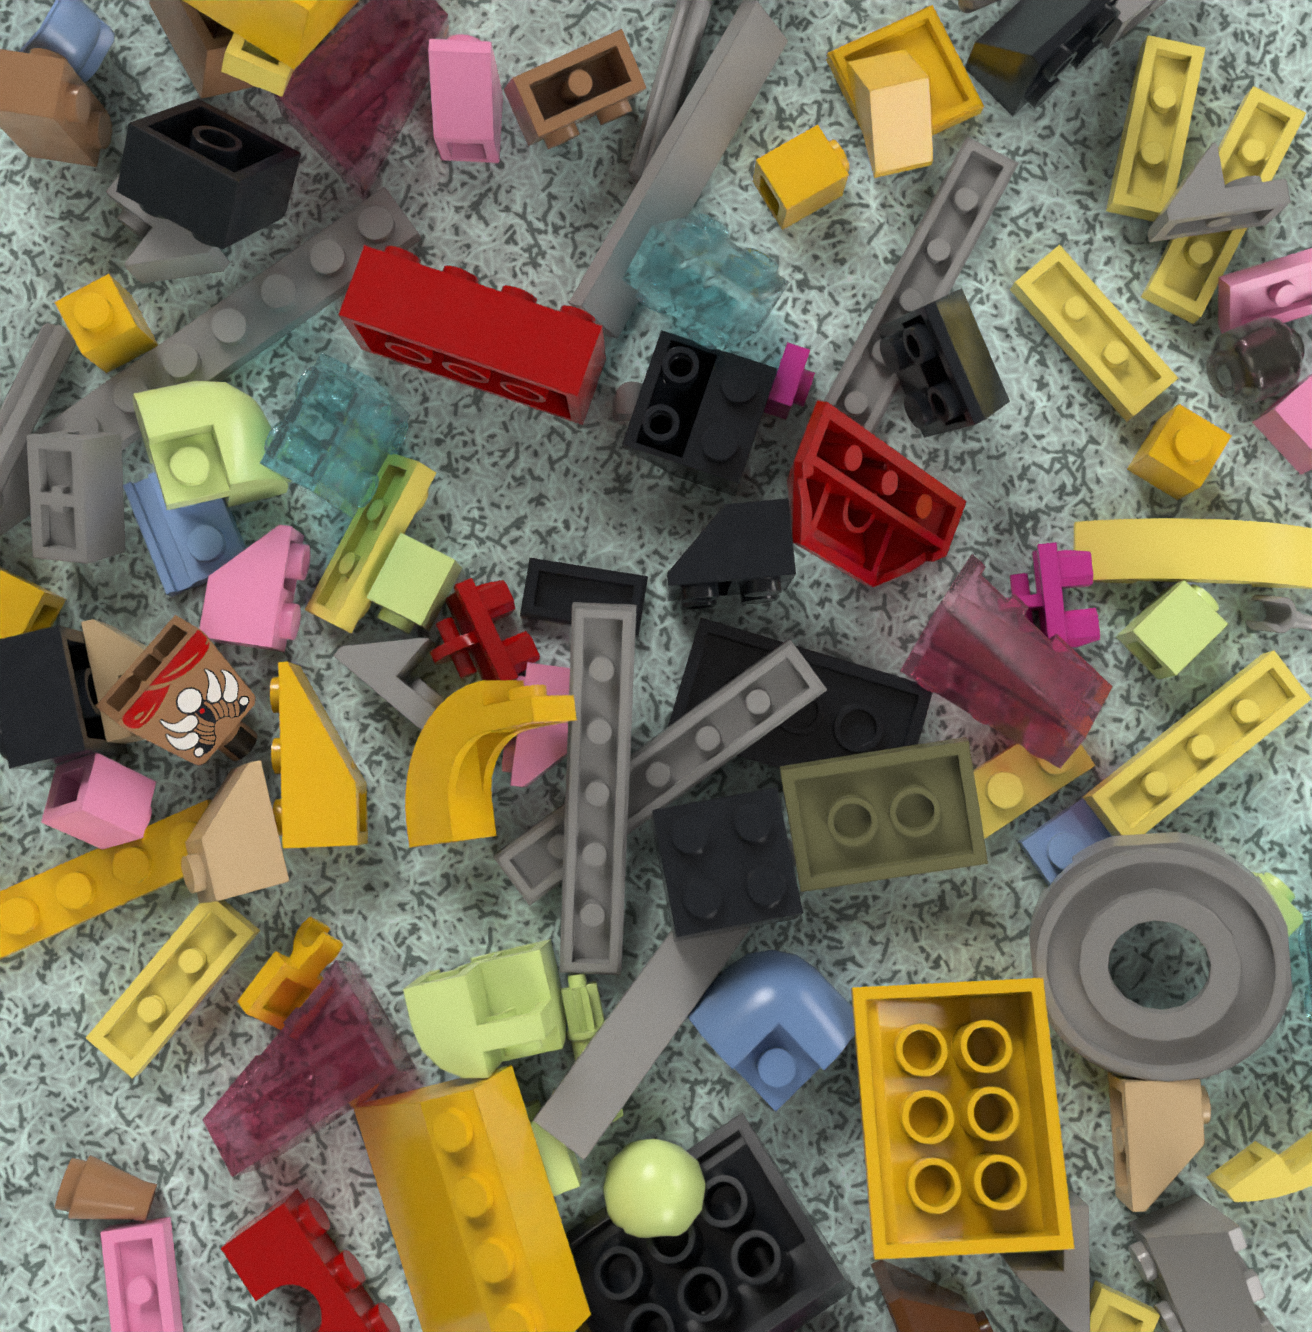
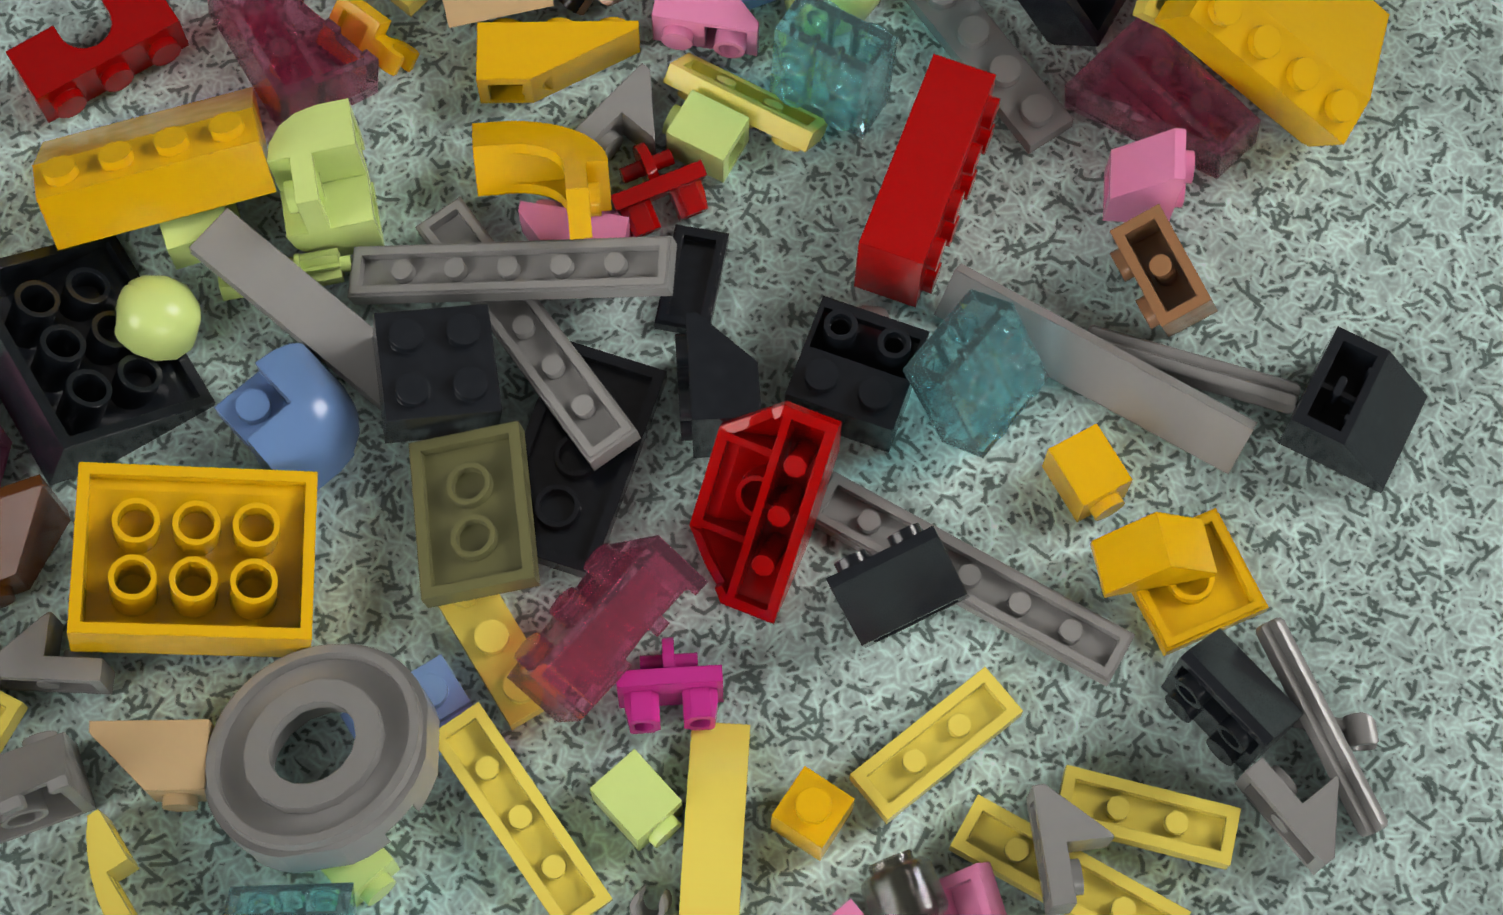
camera: 90 degrees right, 15 degrees down
(791, 382) = (887, 456): dark pink plate -> none

